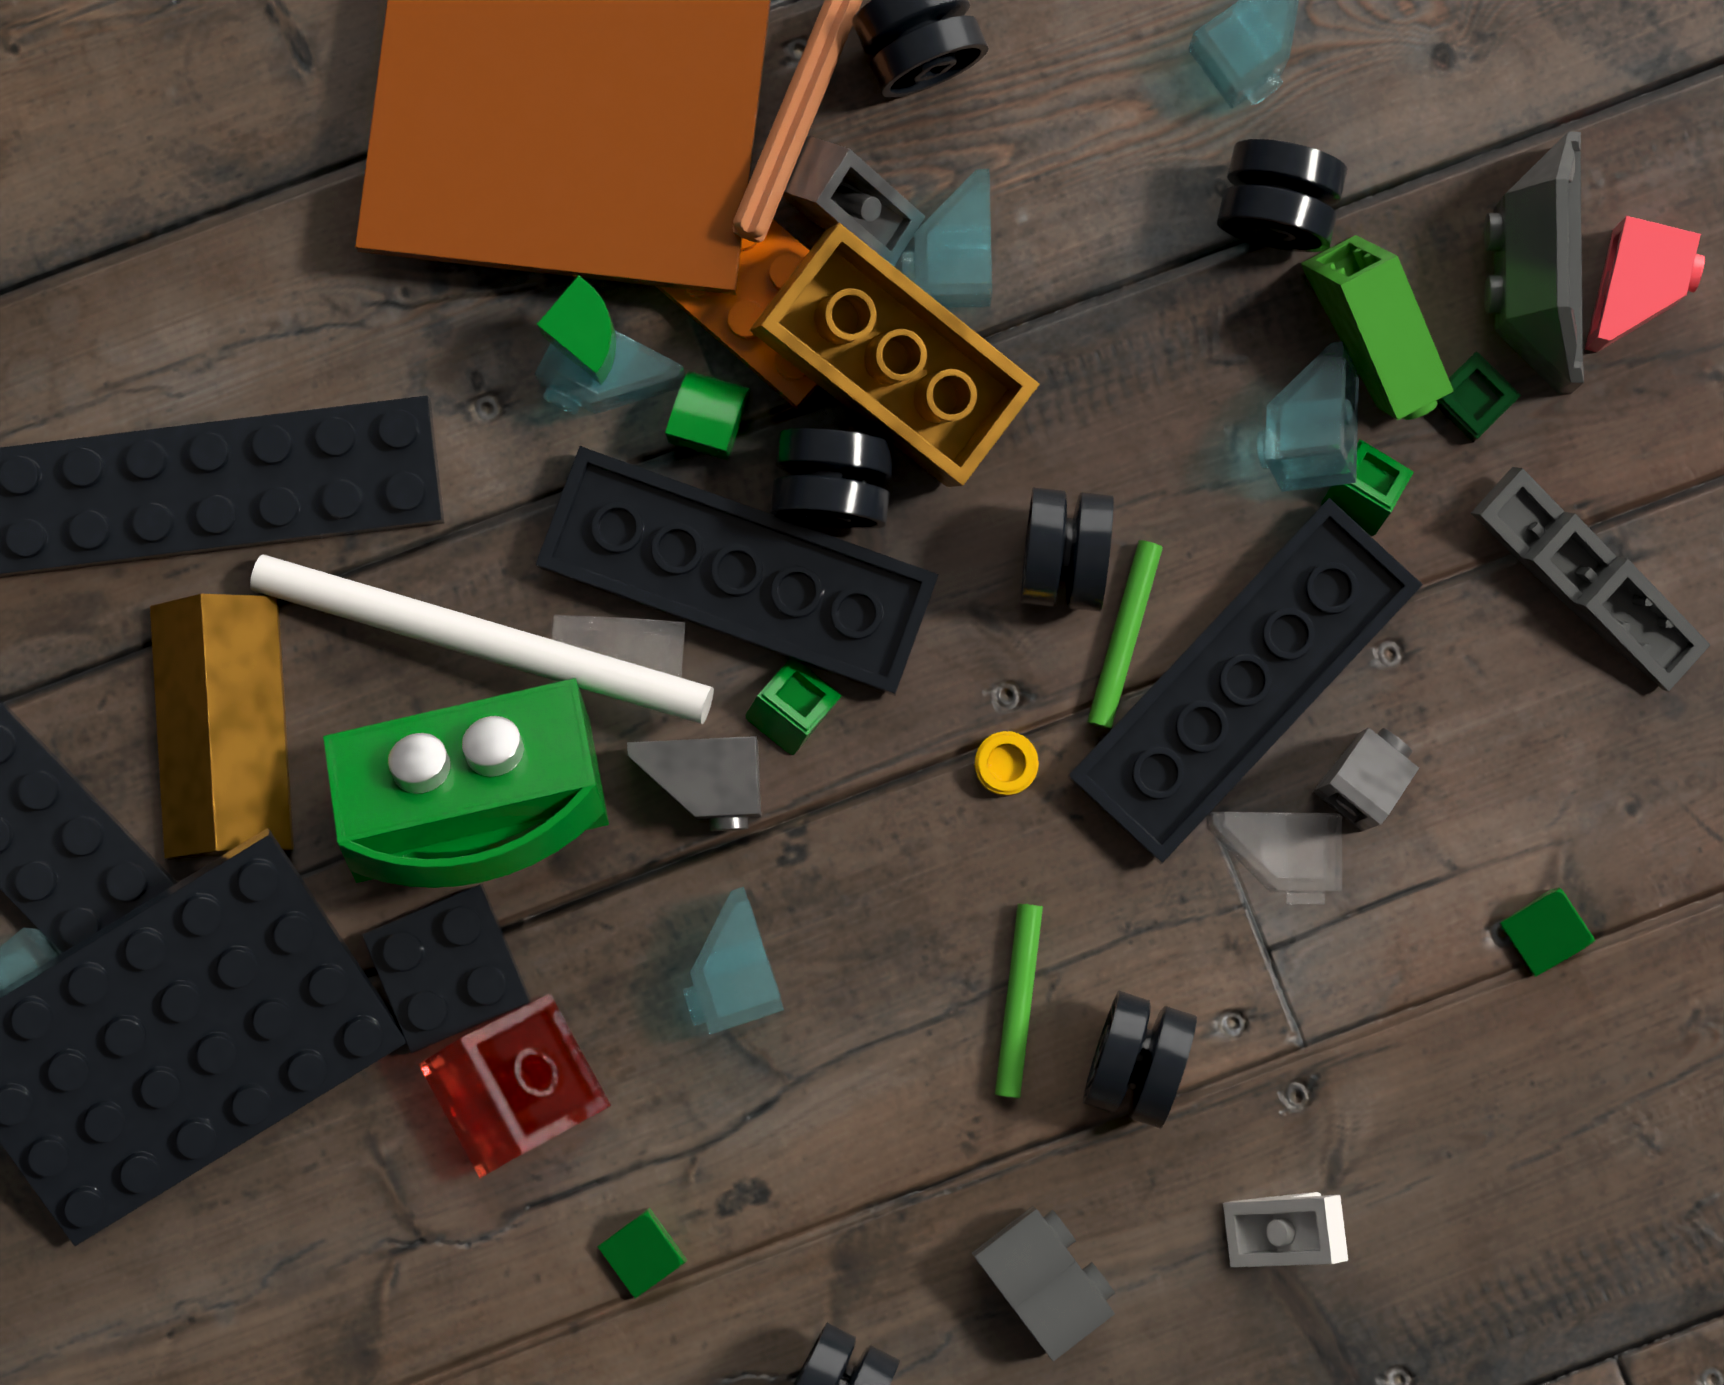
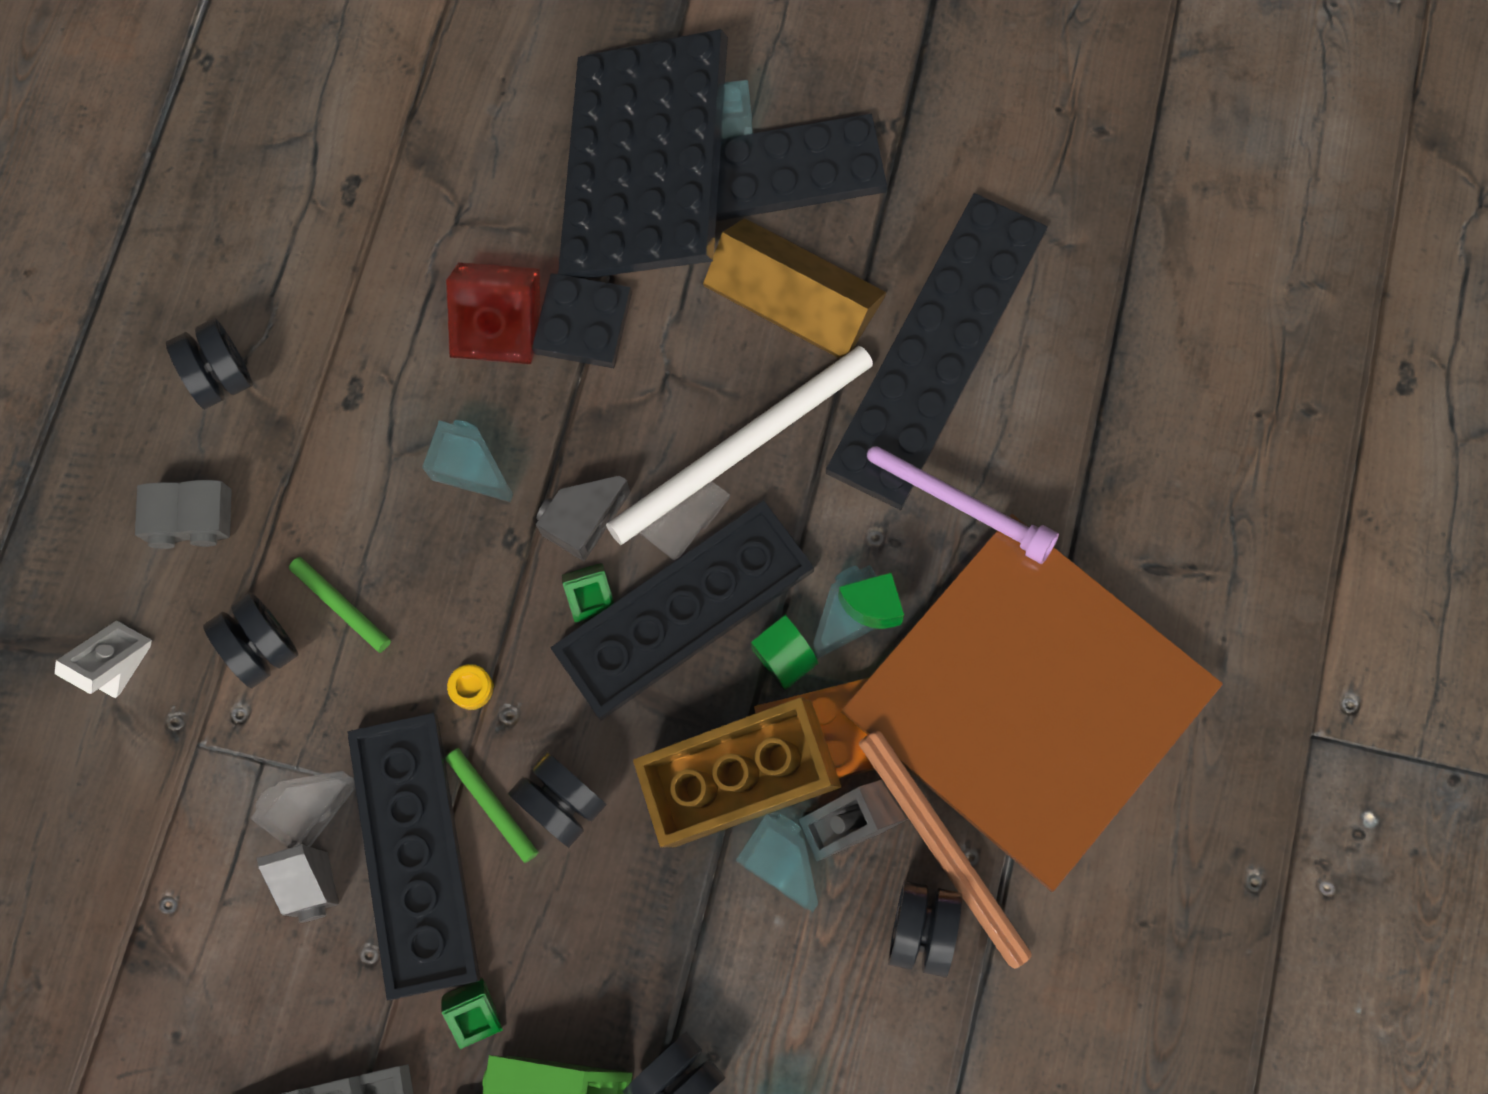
camera: 130 degrees right, 10 degrees down
(375, 194) = (1034, 540): none -> lavender piece
(466, 788) = (660, 378): green piece -> none
(642, 1253) = (362, 324): green slope -> none
(832, 478) = (692, 691): black wheel -> none
(1314, 425) = (525, 1003): clear light blue slope -> none
(1547, 931) = (146, 928): green slope -> none

